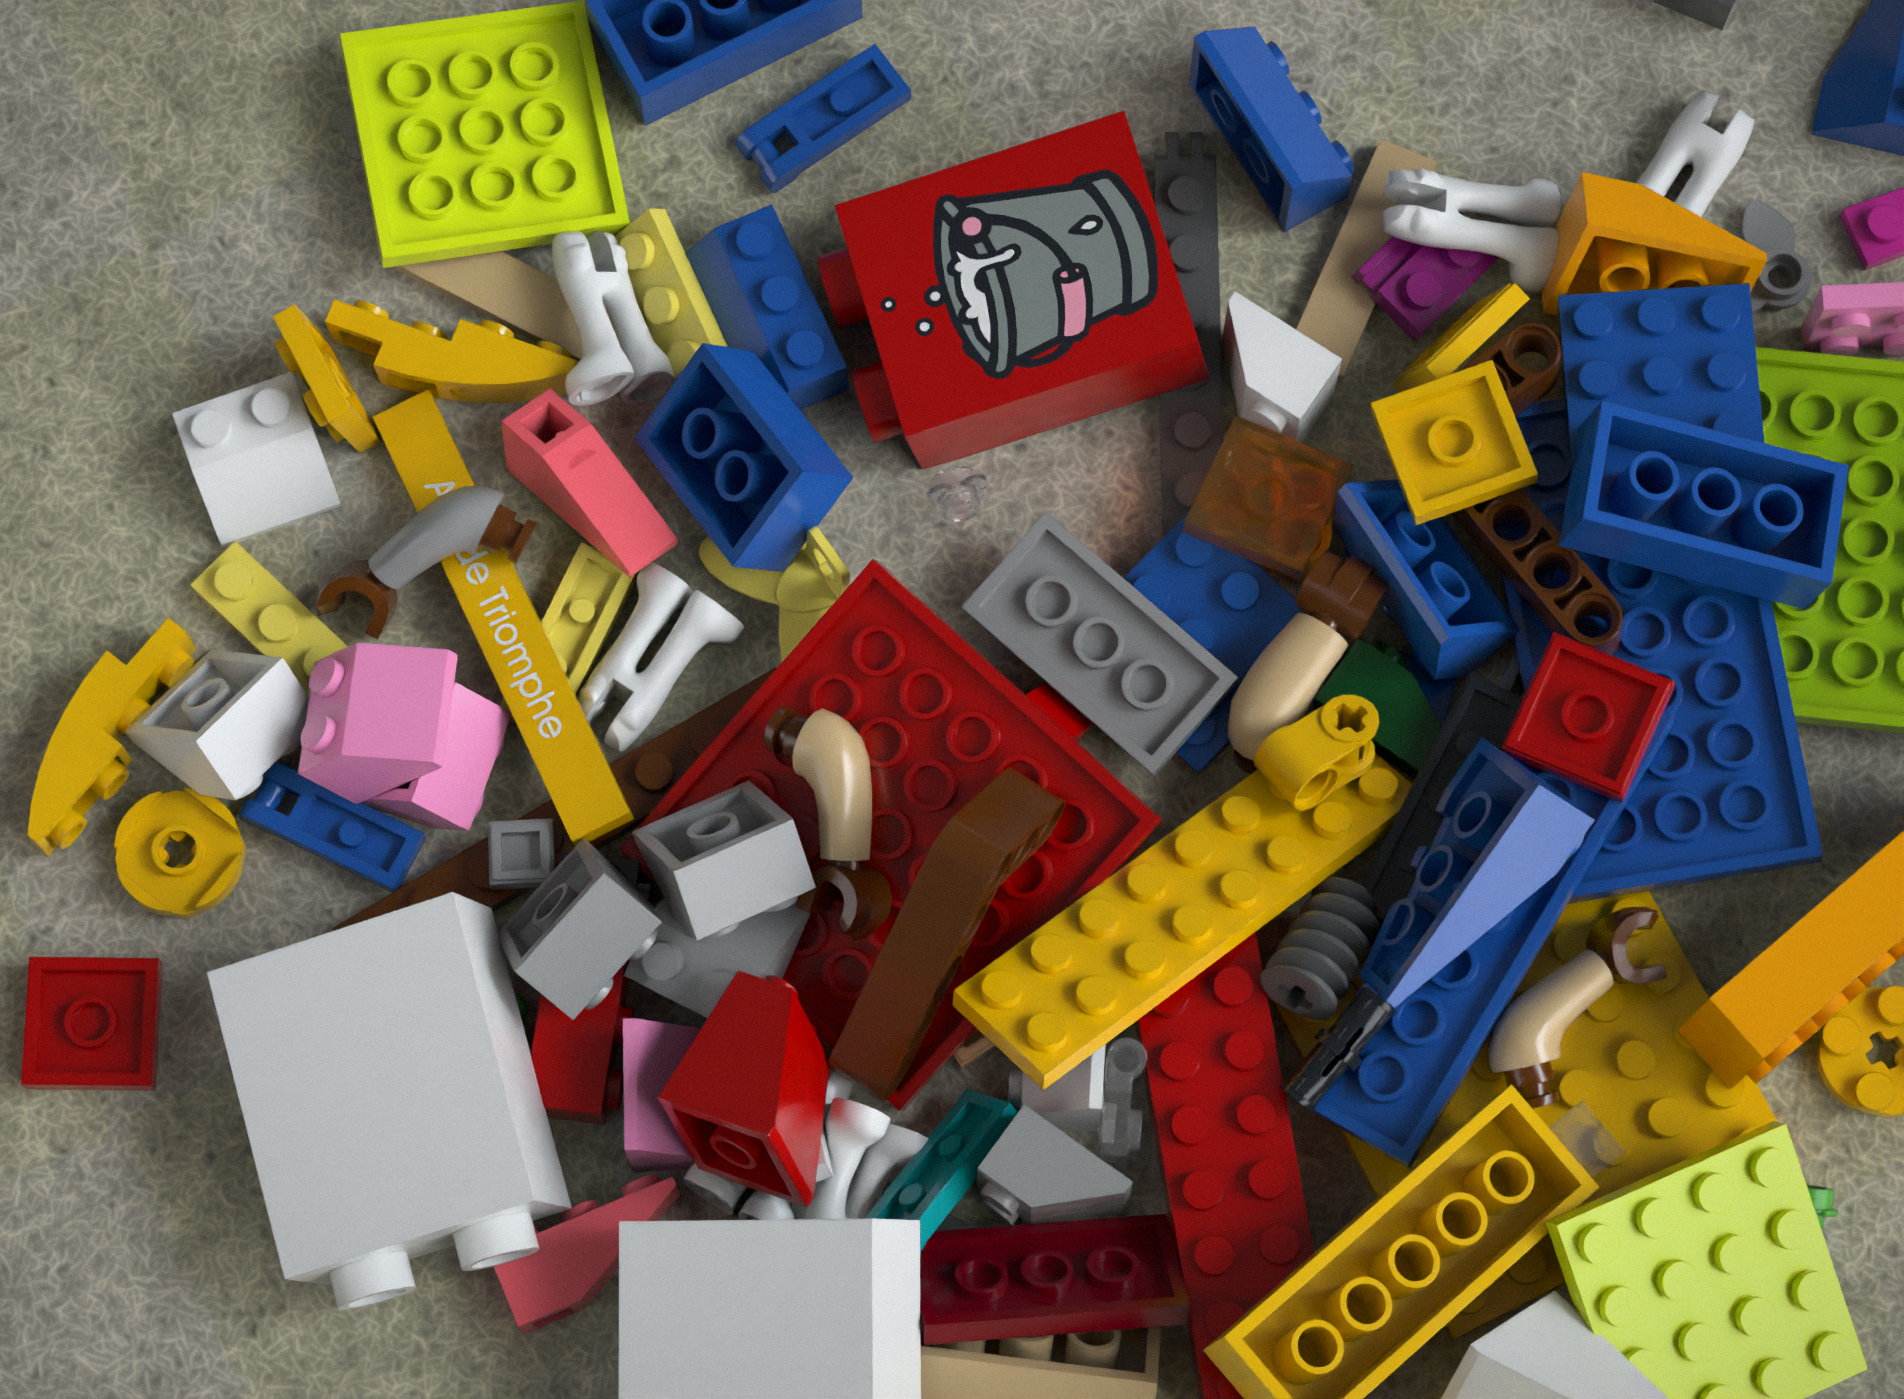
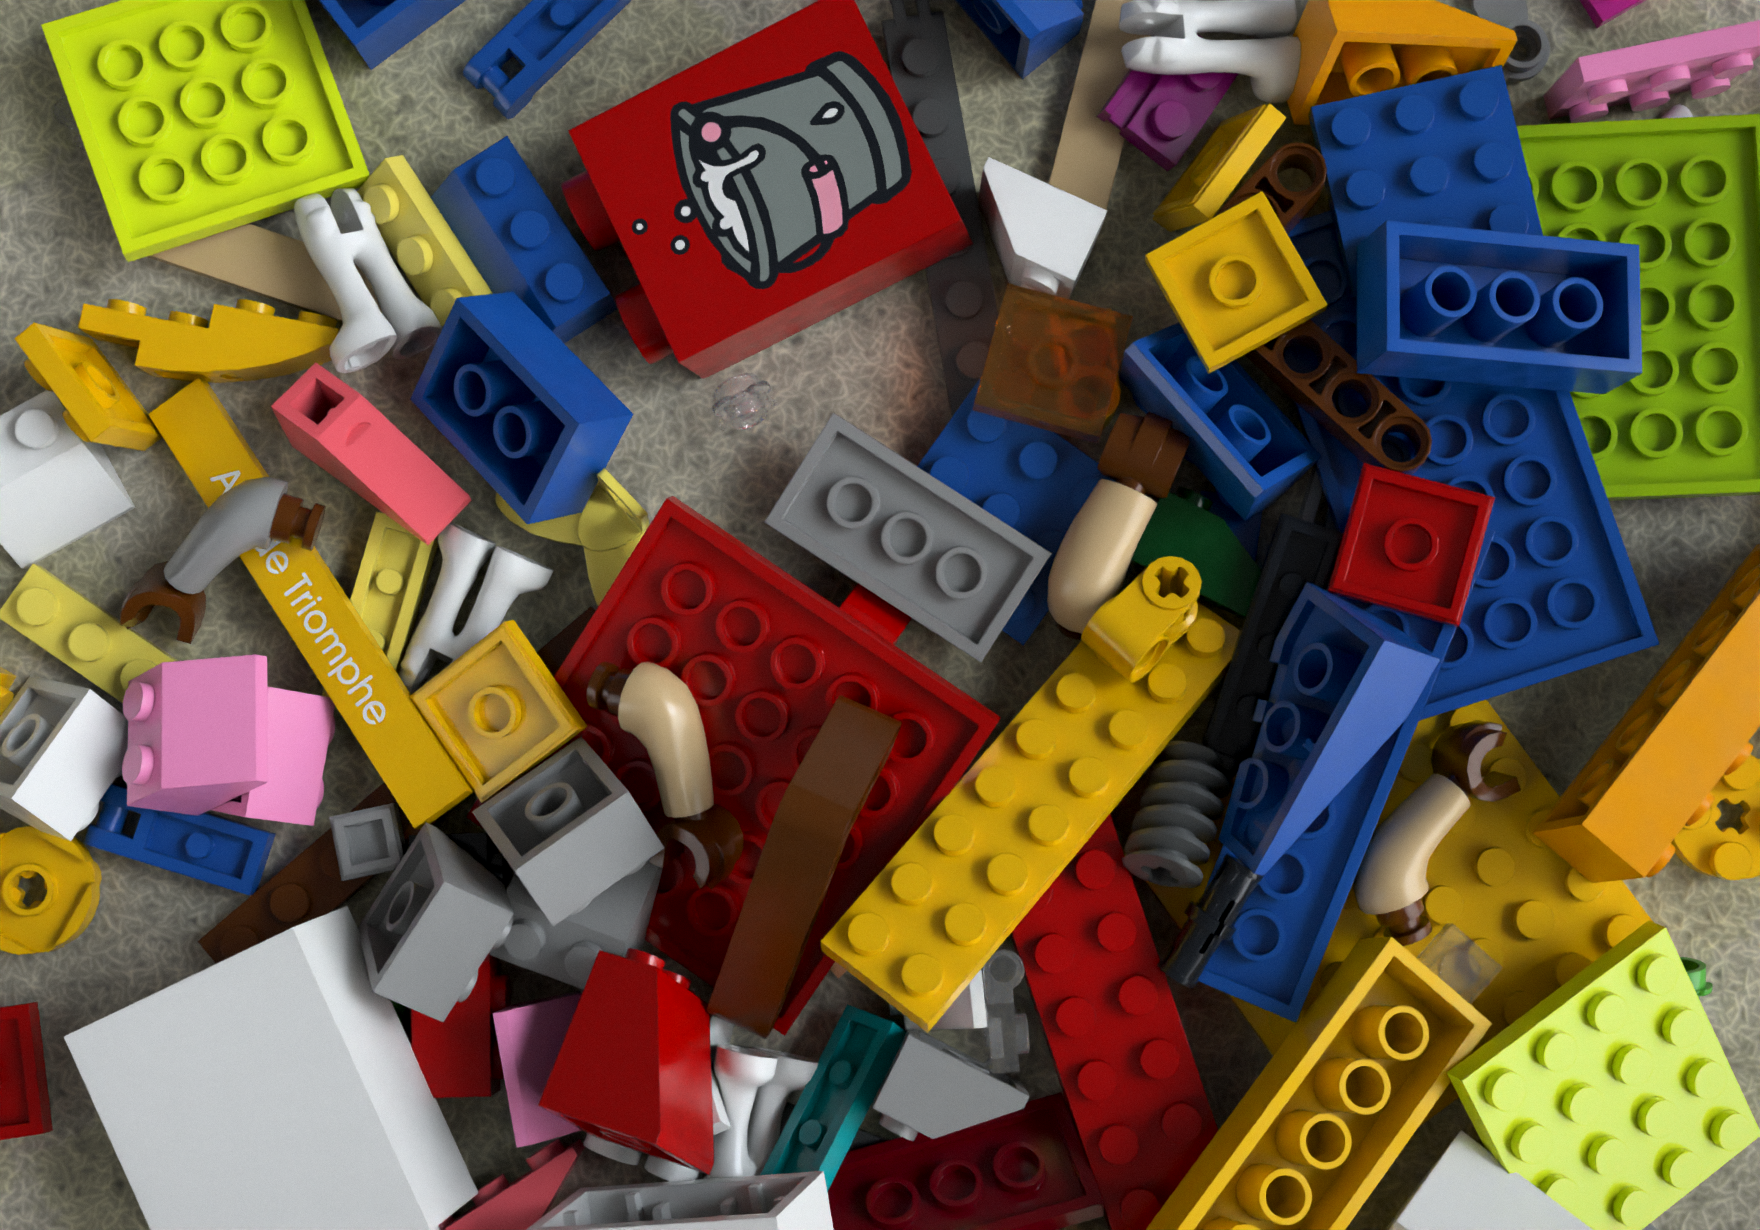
camera: 10 degrees left, 10 degrees up
(671, 742) = (497, 711): none -> yellow plate

